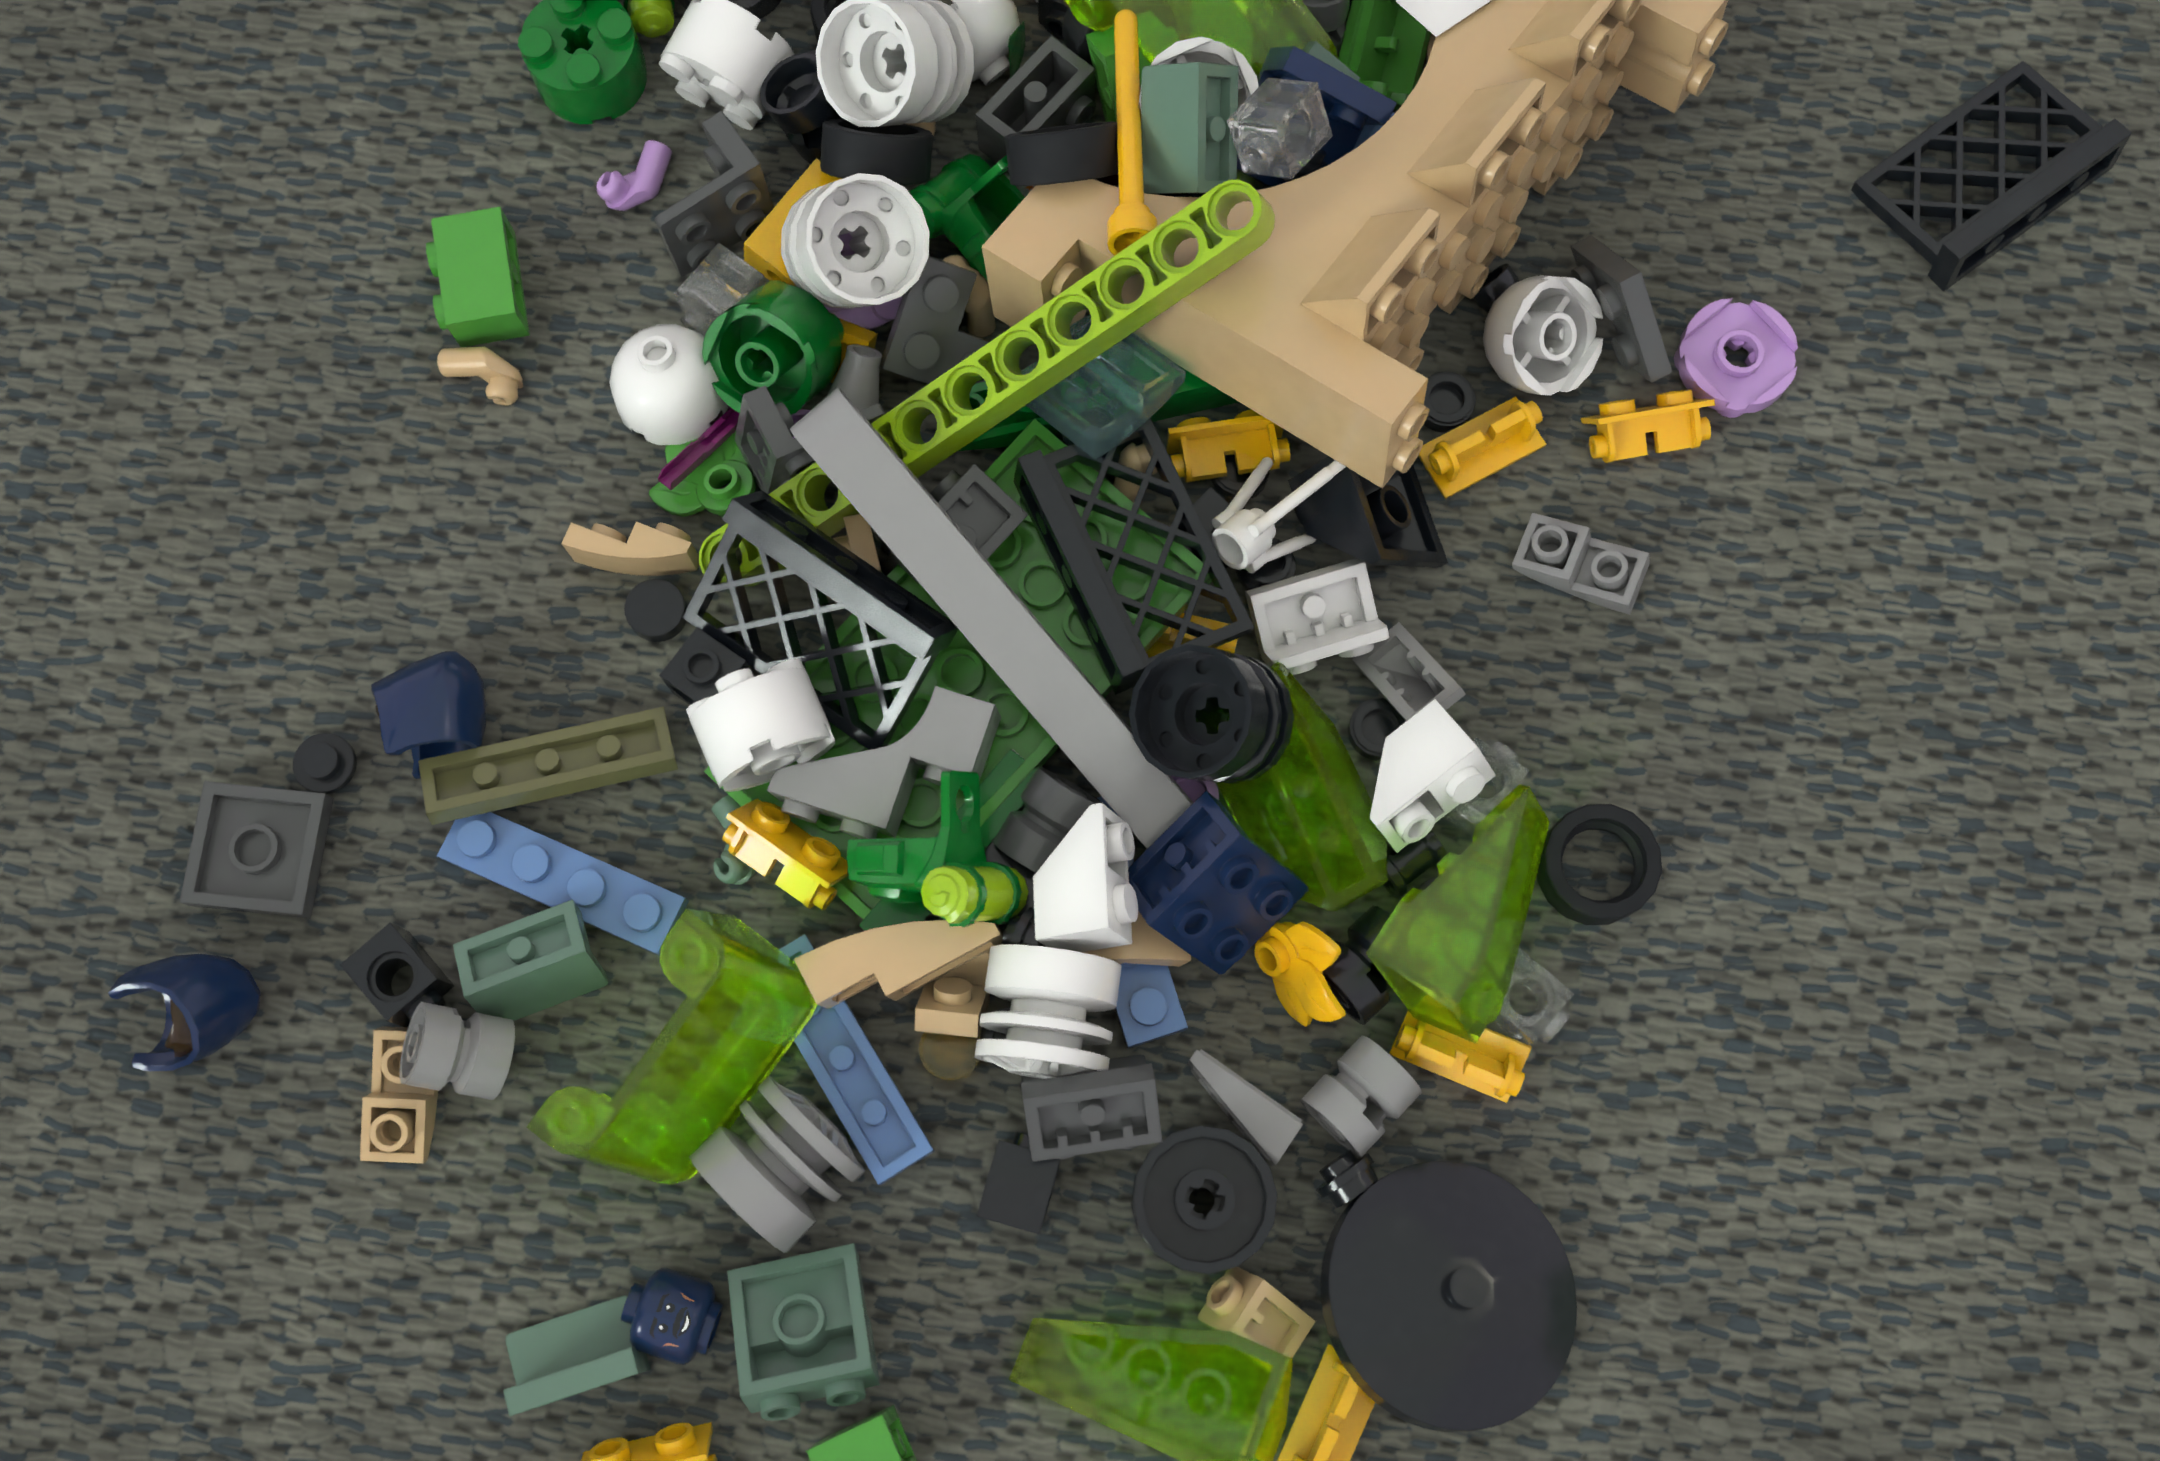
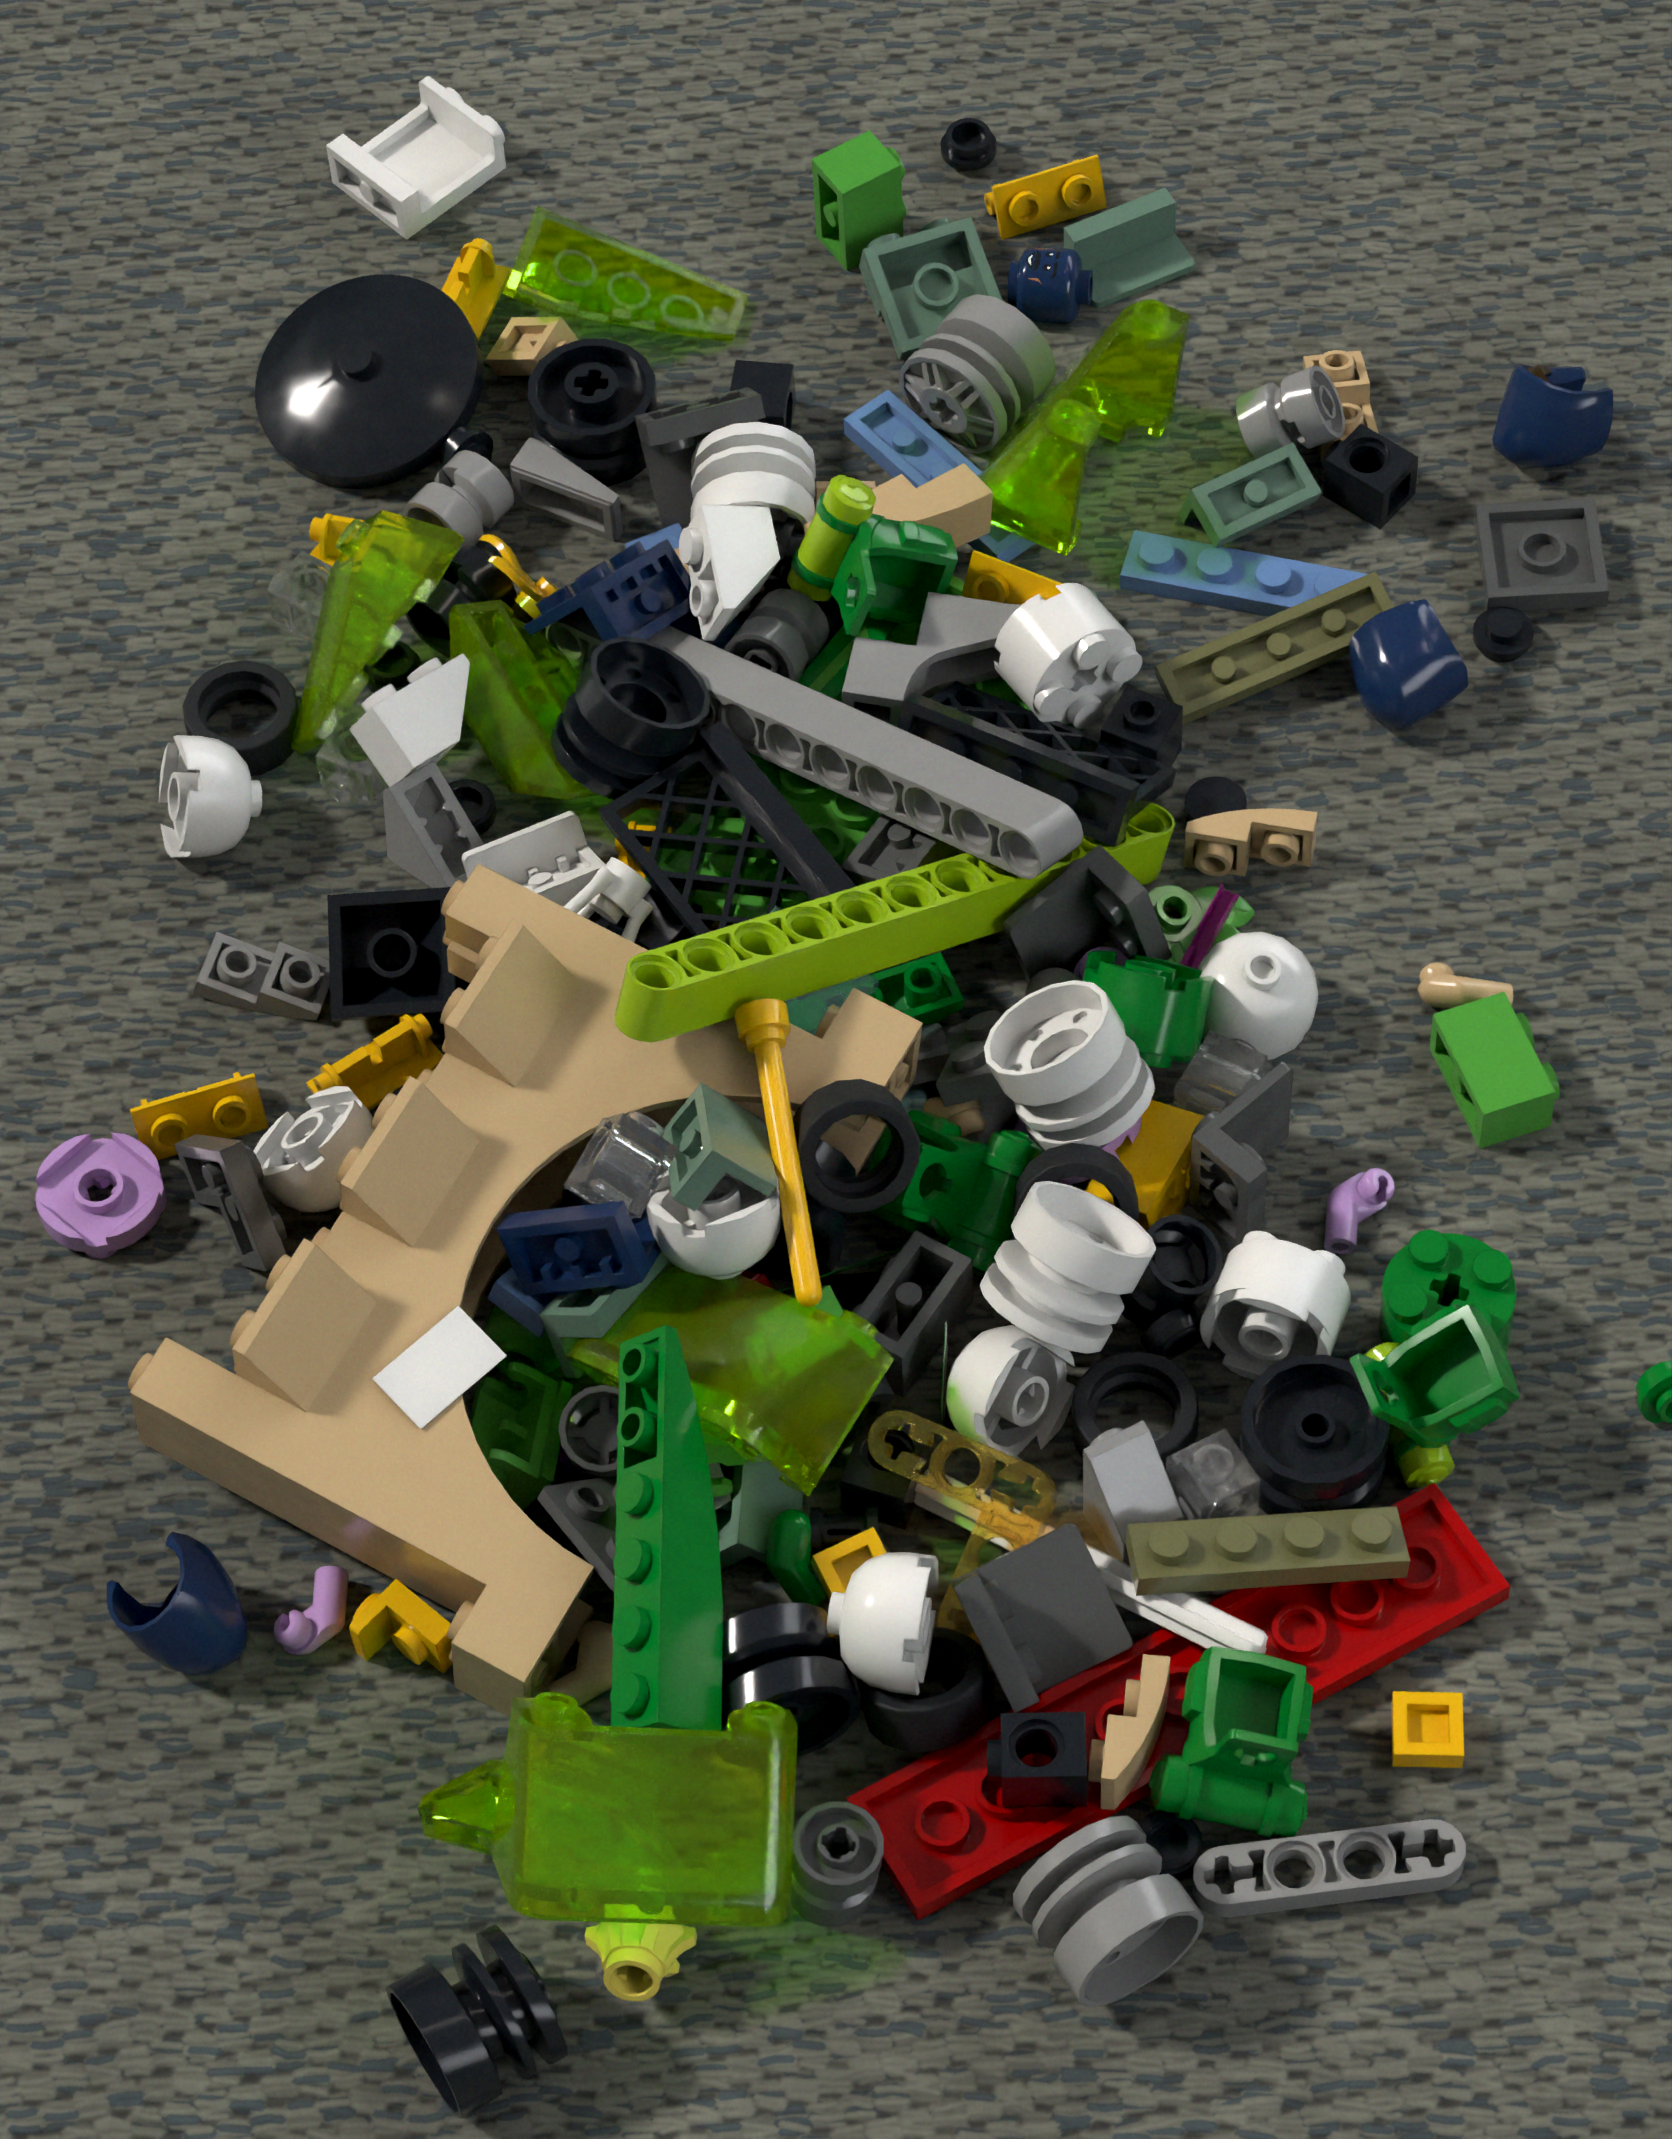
camera: 175 degrees right, 20 degrees down
(1466, 535) = (388, 954): none -> black slope
(1636, 753) = (206, 796): none -> white cylinder

